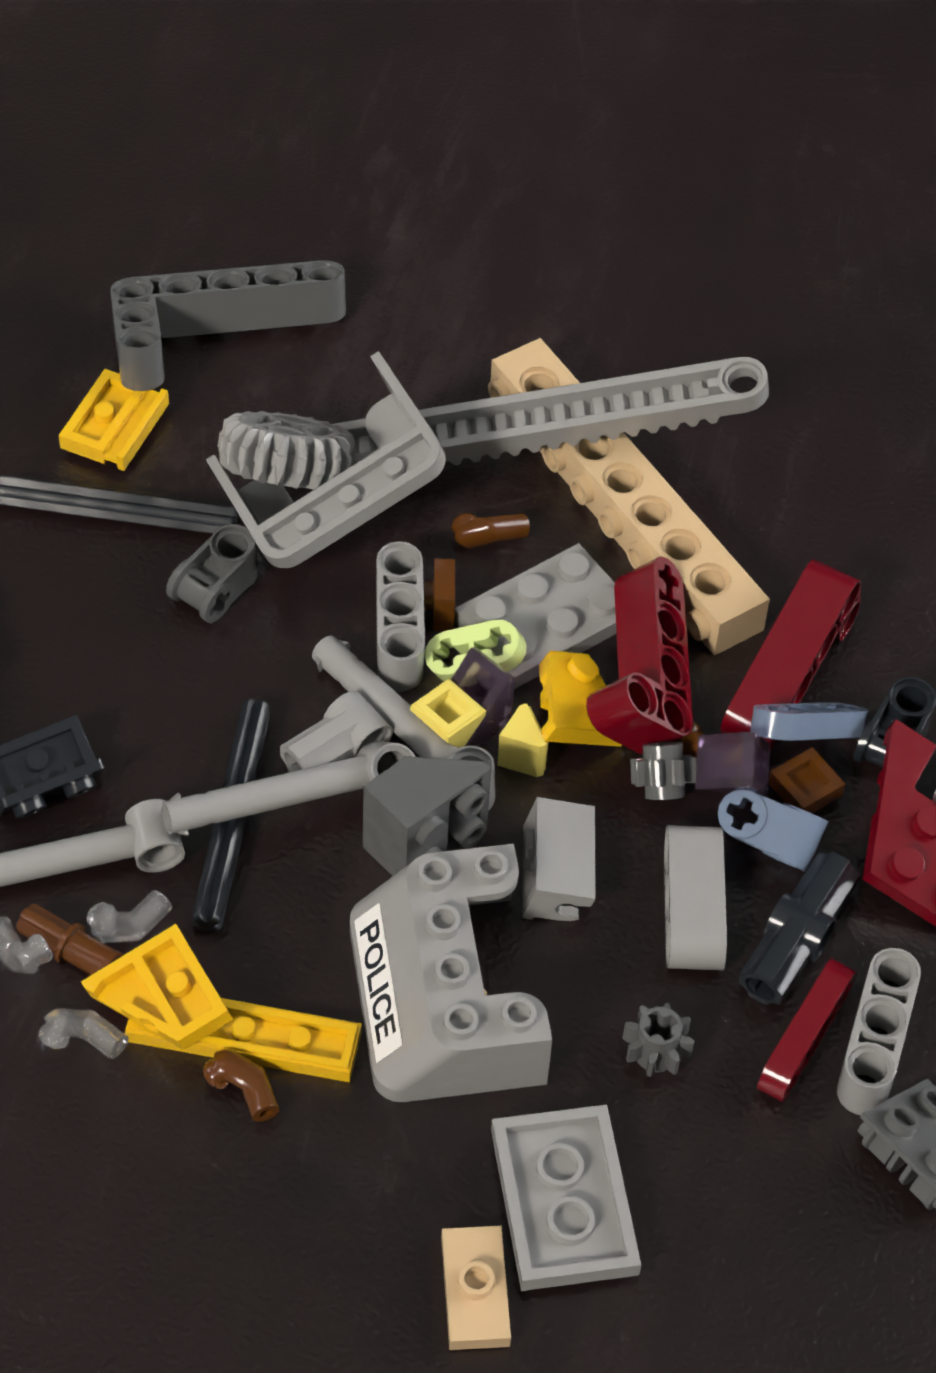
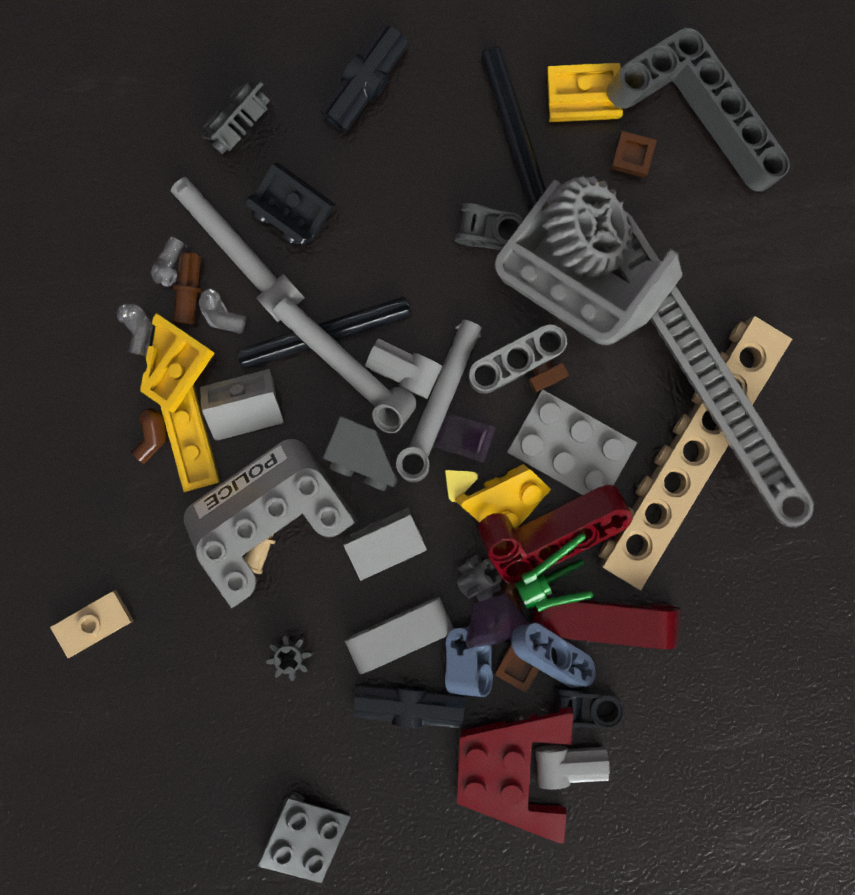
camera: 65 degrees right, 35 degrees up
(218, 401) = (633, 154): none -> reddish brown plate
(270, 946) = (241, 405): none -> light grey panel
(449, 713) = (445, 430): light yellow slope -> none
(476, 532) = (618, 382): reddish brown arm -> none
(479, 635) = (517, 417): yellowish green beam -> none
(565, 1198) = (165, 648): light grey plate -> none
(709, 702) = (535, 587): none -> green plant
(806, 1030) = (340, 739): dark red beam -> none
(884, 1009) = (345, 793): light grey beam -> none

